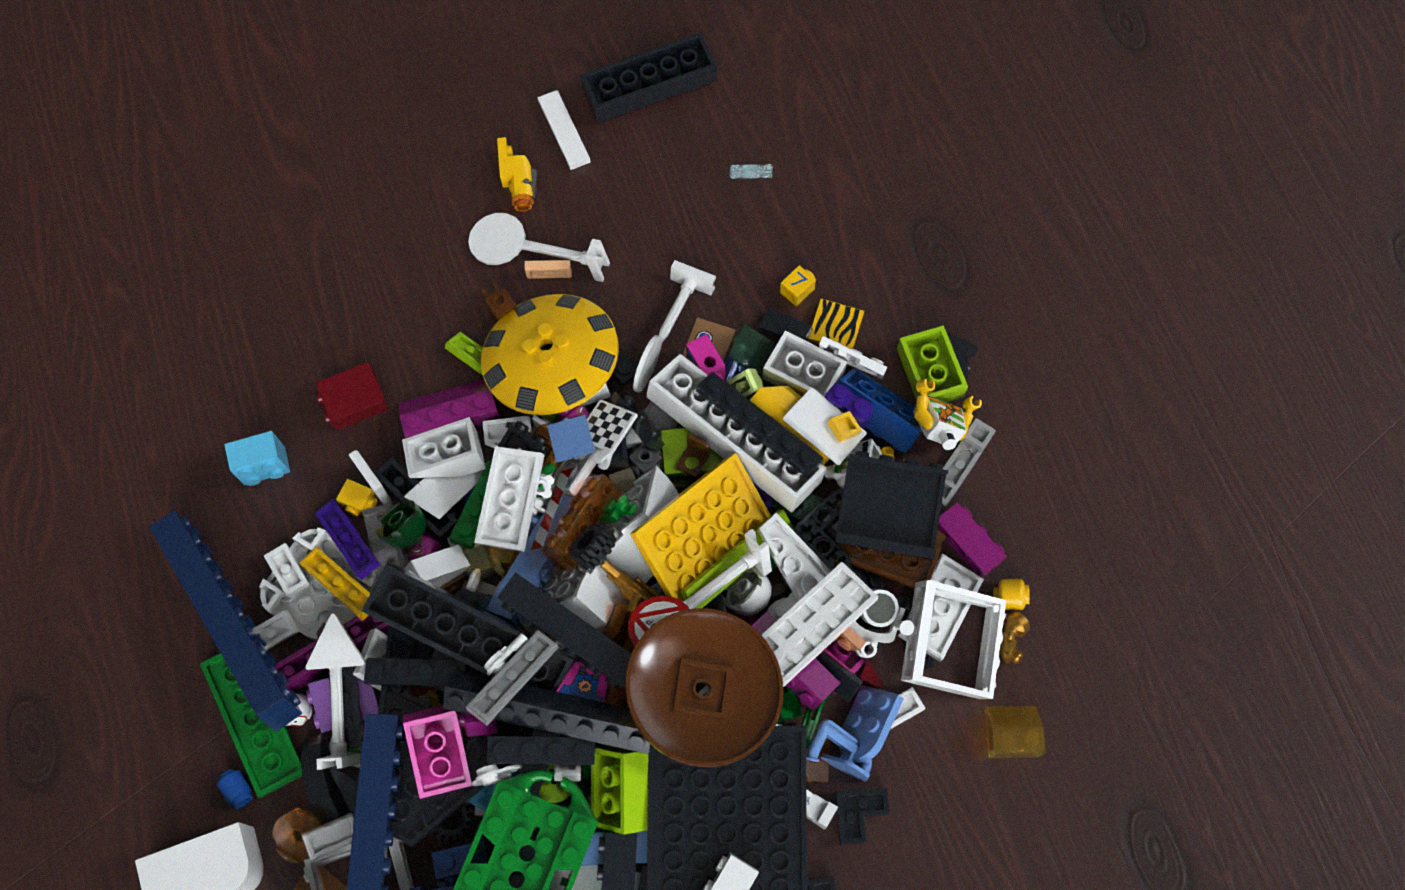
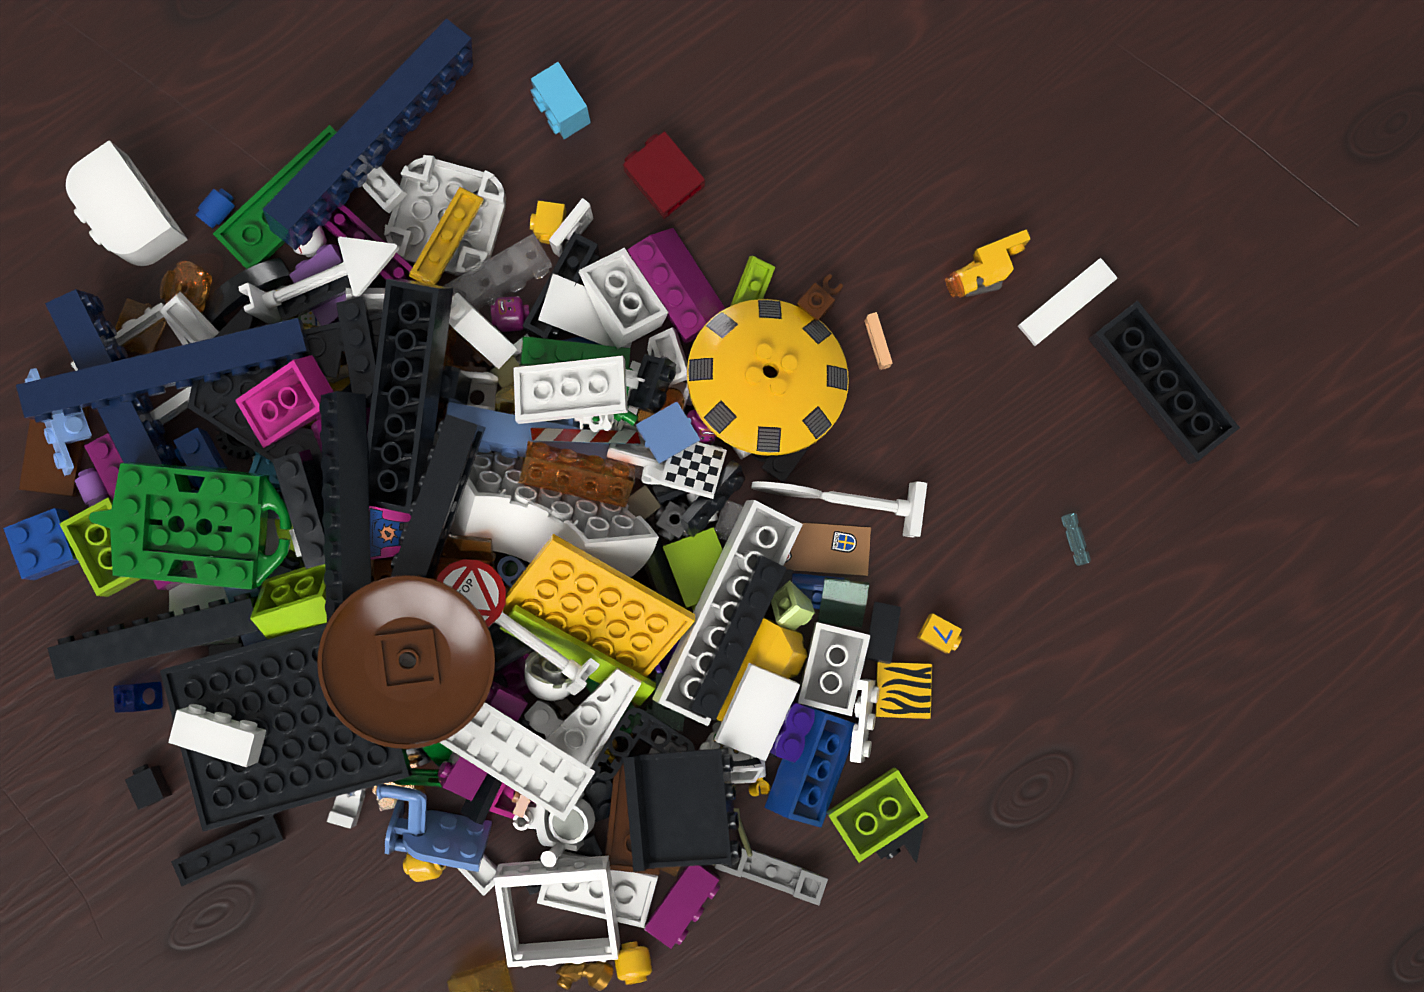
camera: 70 degrees right, 15 degrees up
(286, 570) = (449, 177): white plate -> none
(347, 539) = (498, 228): dark purple plate -> none
(402, 525) = (521, 282): dark green cylinder -> none
(491, 774) = (265, 463): white plate -> none
(499, 659) = (377, 437): white plate -> none
(502, 237) = (902, 273): white piece -> none
(511, 677) = (363, 457): light grey tile -> none
(592, 546) = (539, 496): black tyre -> none
(615, 508) = (595, 507): green plate -> none
(632, 590) = (507, 551): pearl gold piece -> none
(695, 448) = (698, 576): reddish brown bracket -> none
(705, 356) = (812, 550): dark pink torso -> none
(844, 426) = (760, 734): yellow tile -> none
(854, 807) = (360, 845): black plate -> none
(871, 678) = (498, 829): dark red slope -> none
(888, 755) = (421, 870): none -> yellow head
(942, 420) = (811, 842): torso -> none

